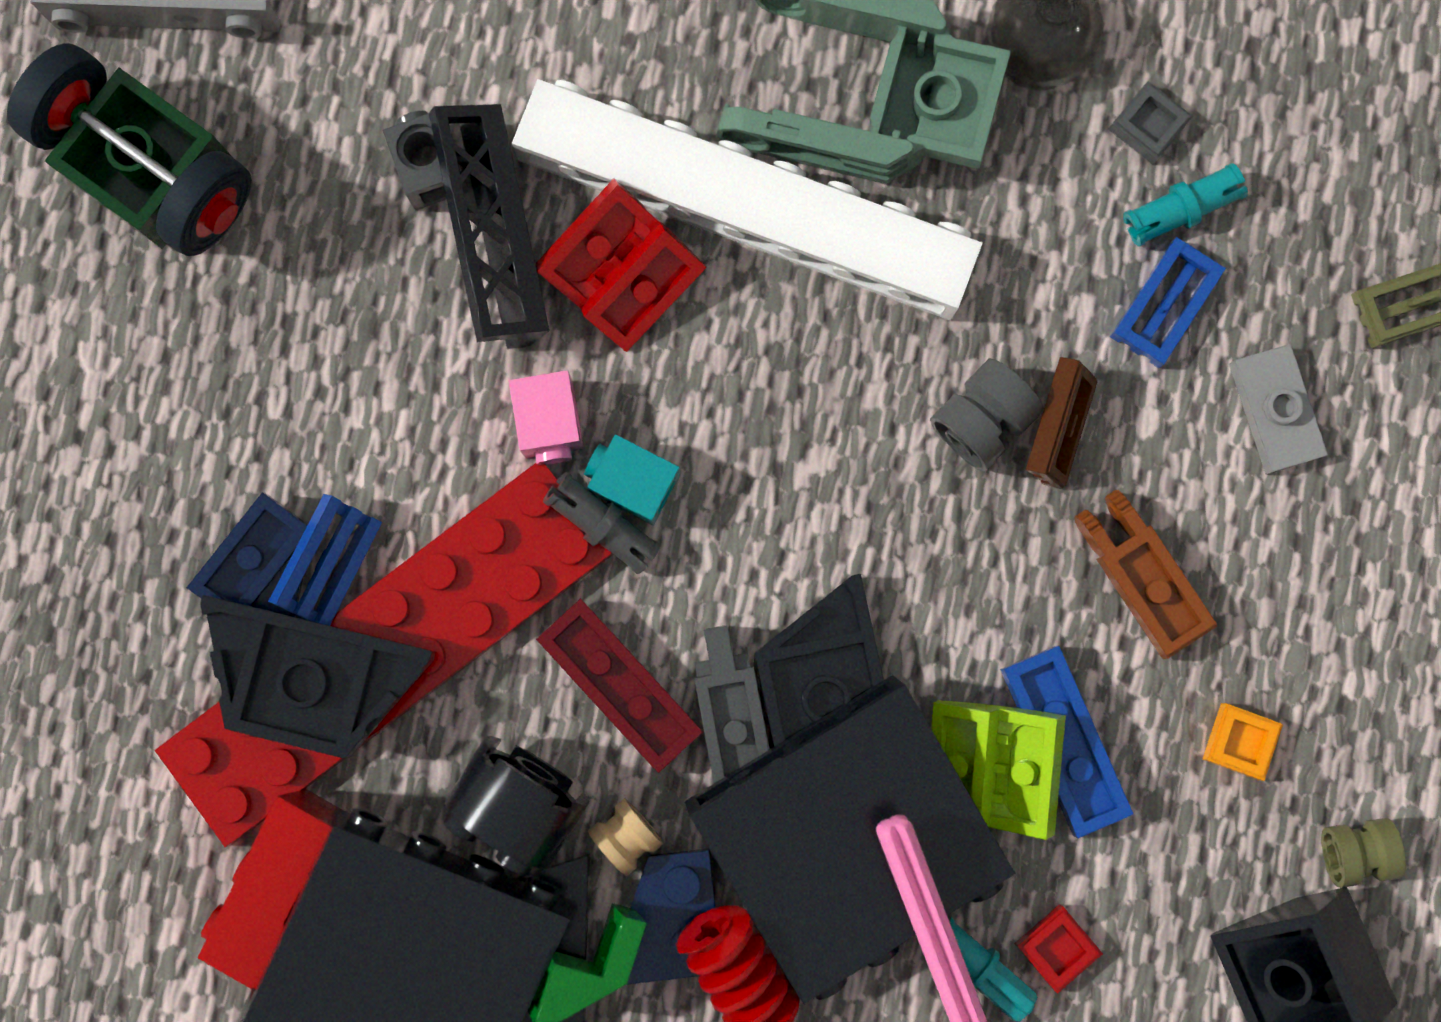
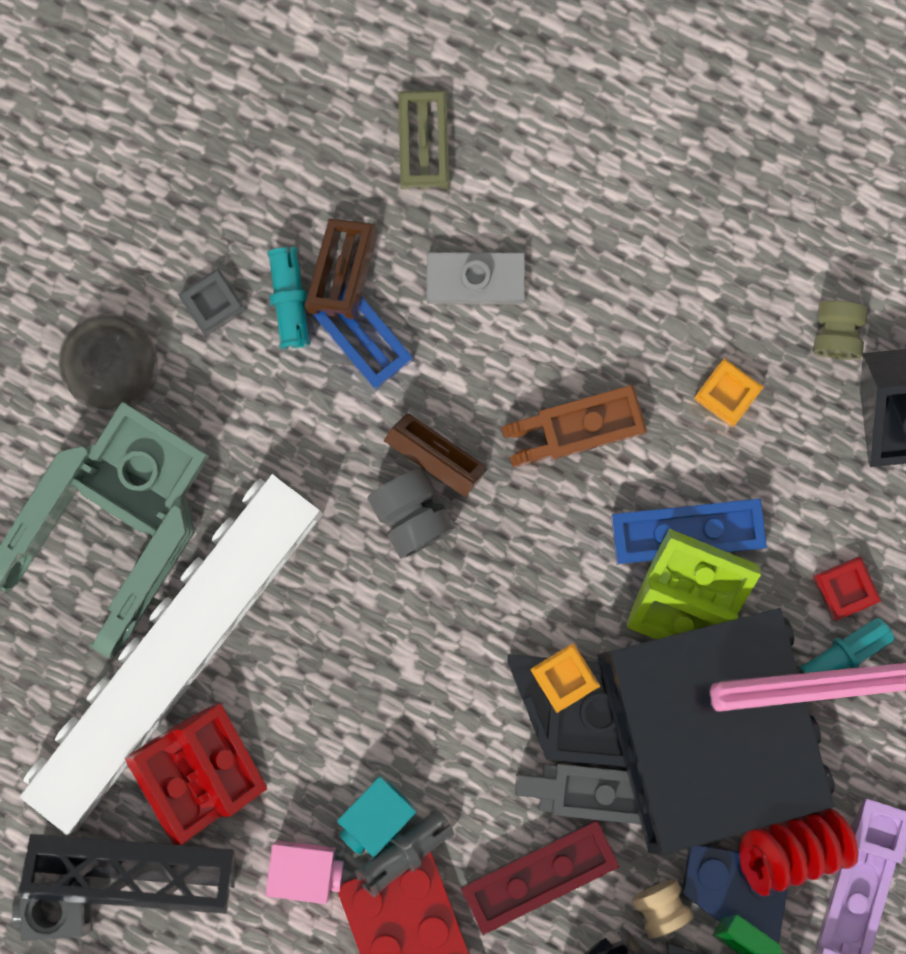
camera: 70 degrees left, 0 degrees up
(855, 645) = (565, 677): none -> light orange tile
(1244, 261) = (350, 304): none -> reddish brown tile

